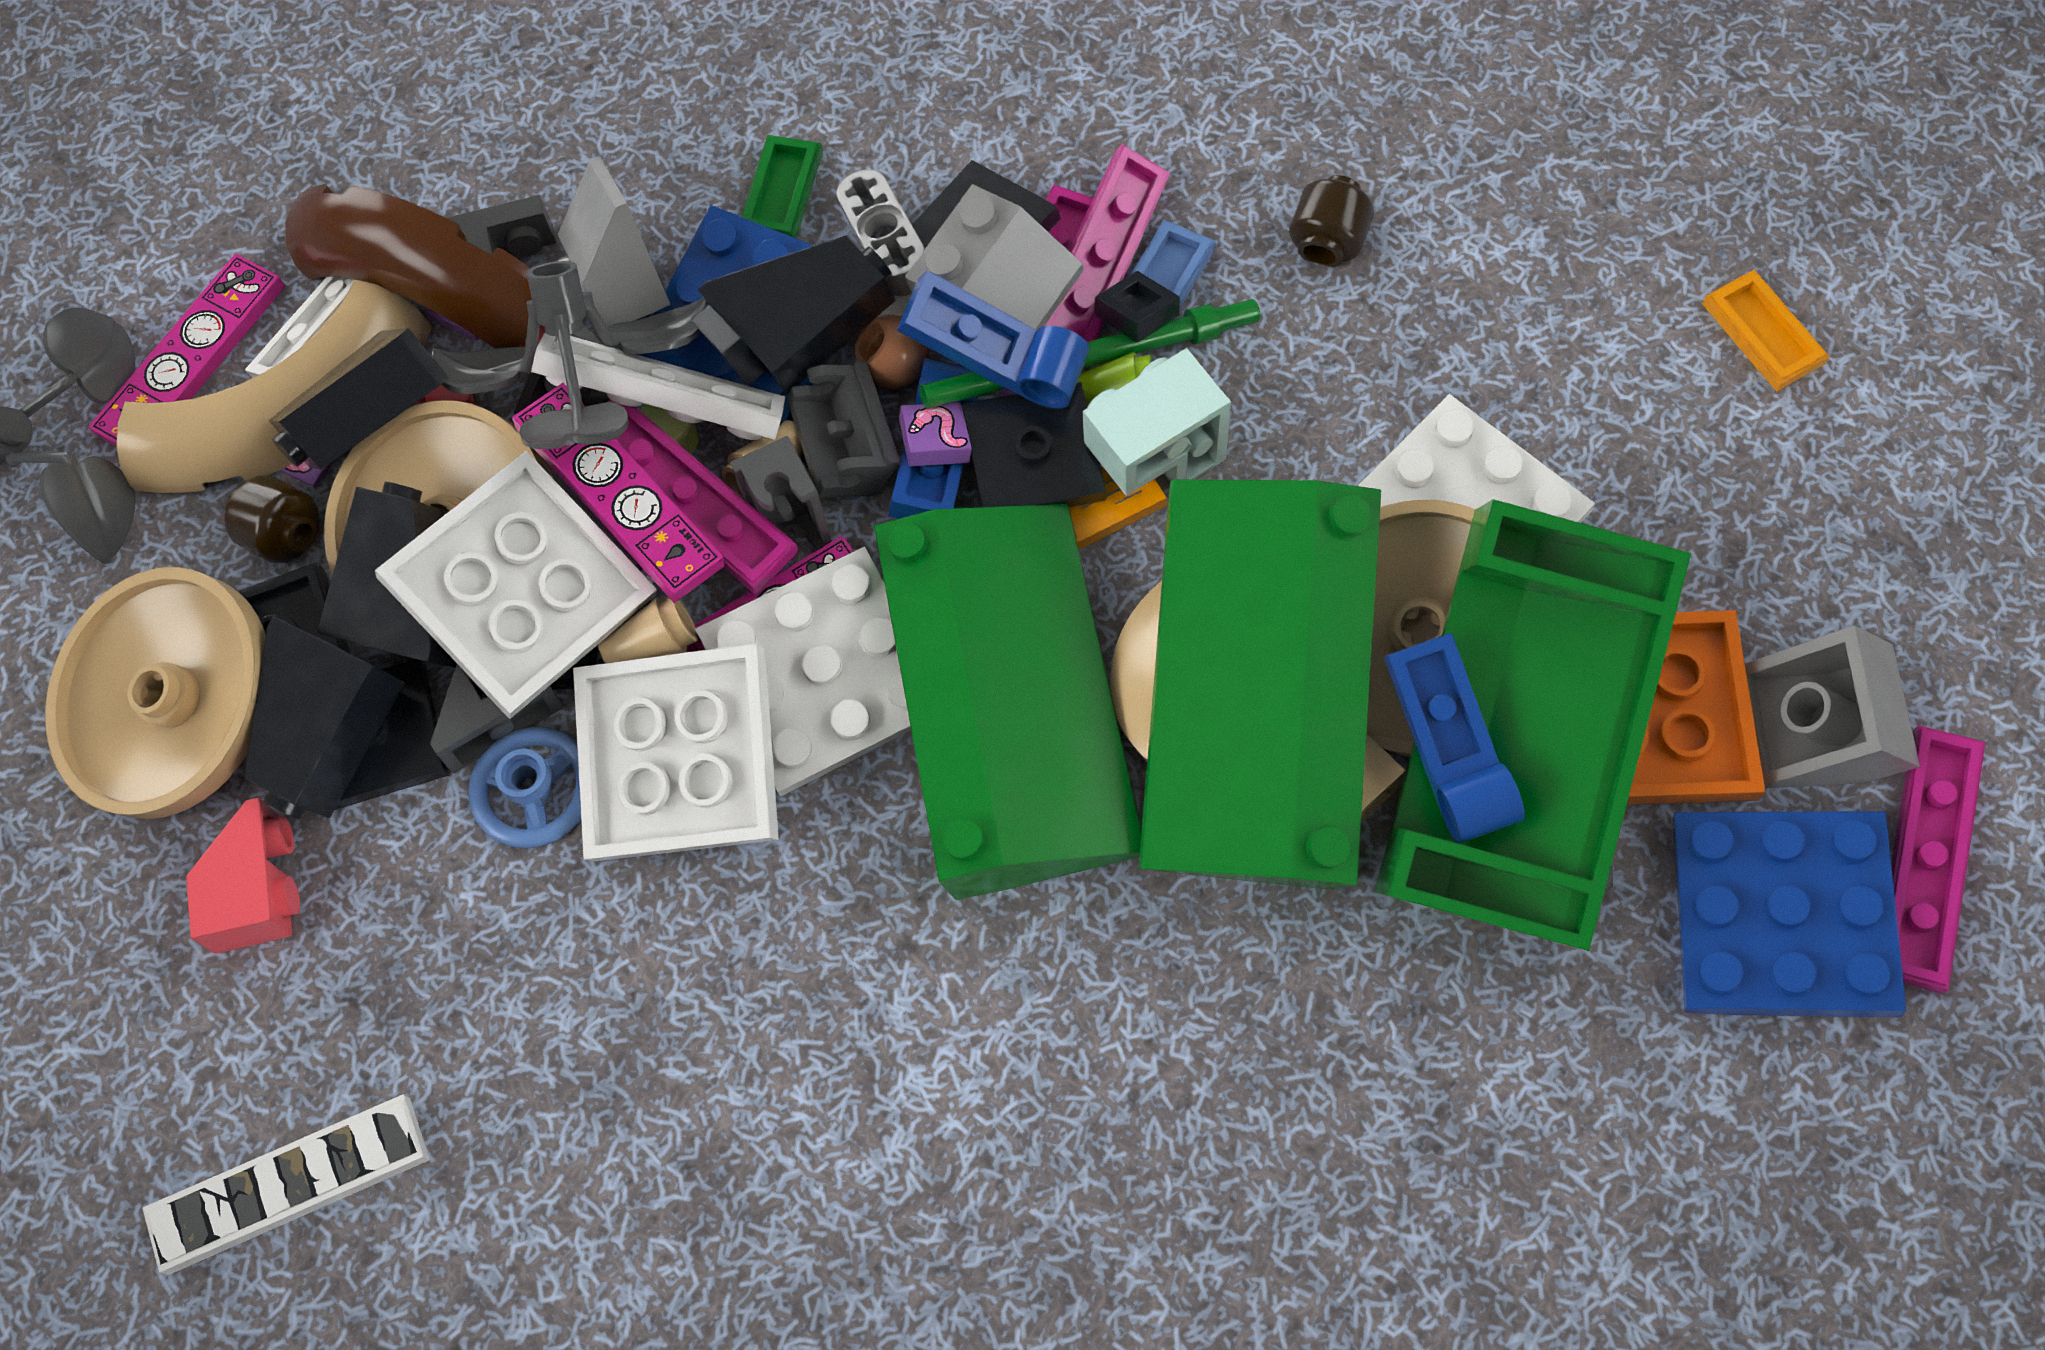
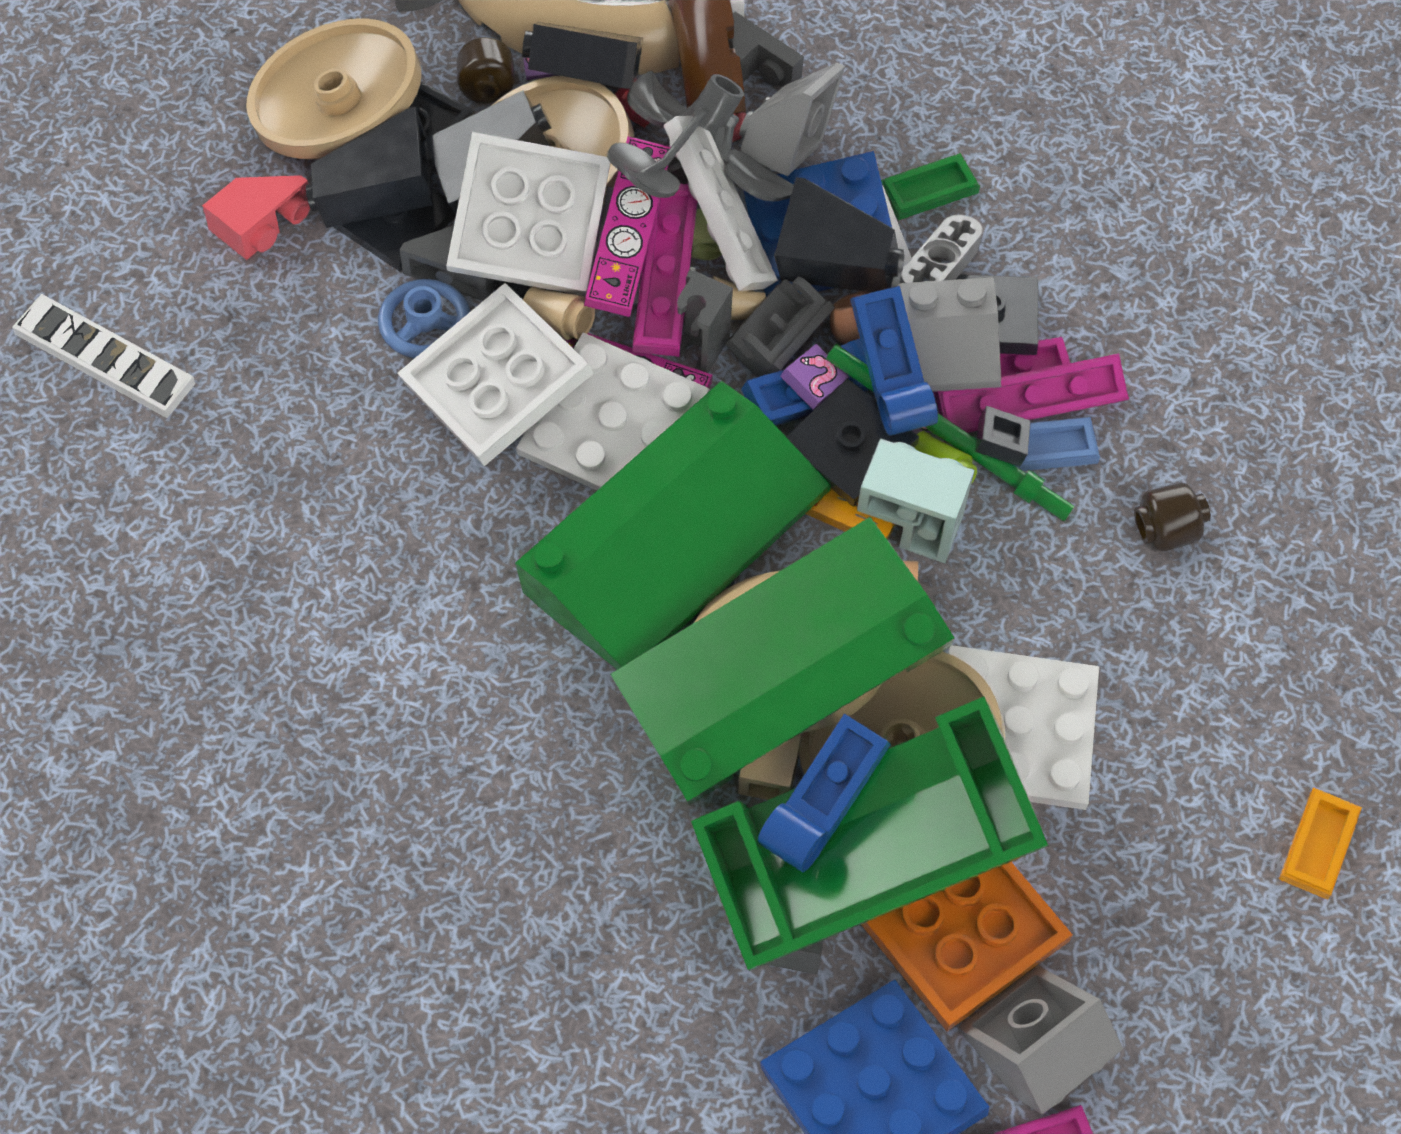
camera: 45 degrees right, 5 degrees down
(728, 345) = (774, 218): black tile -> none

